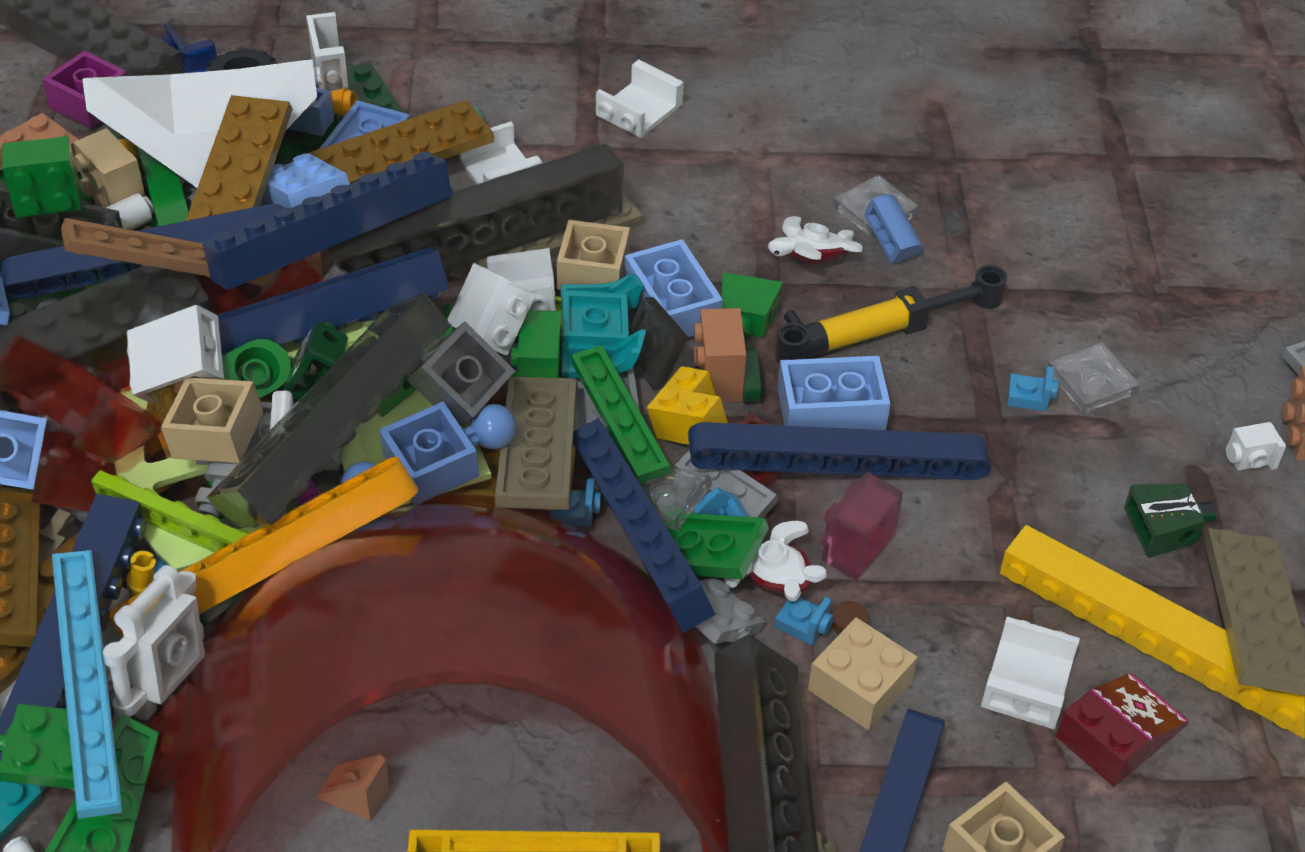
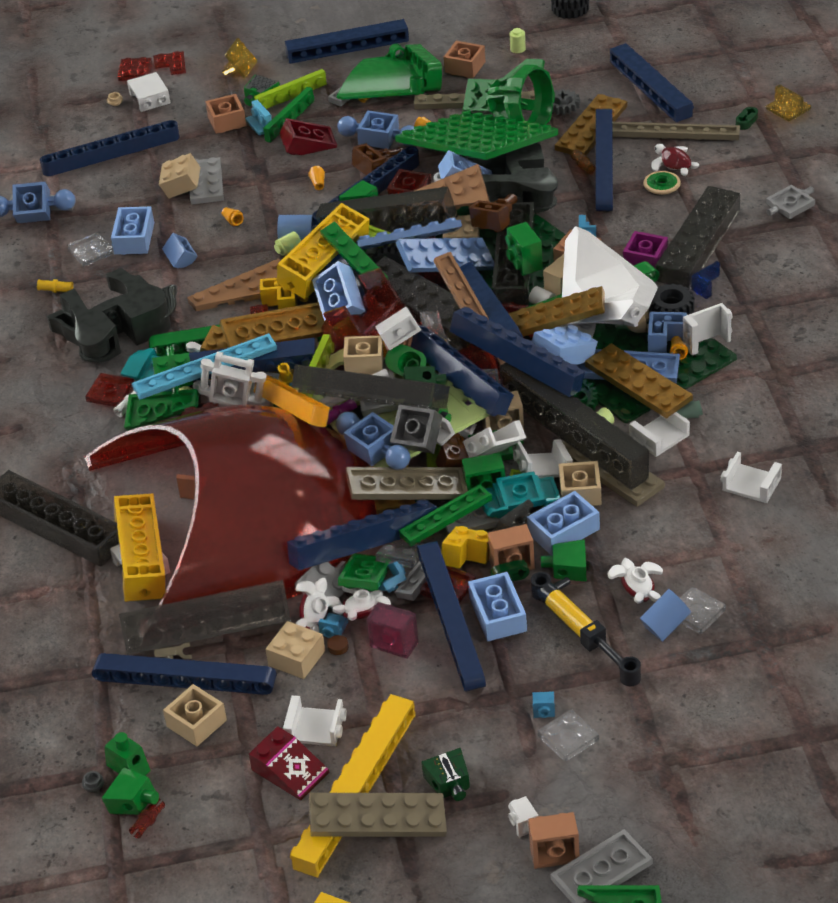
camera: 85 degrees right, 5 degrees down
(773, 623) = (314, 603): none -> white animal

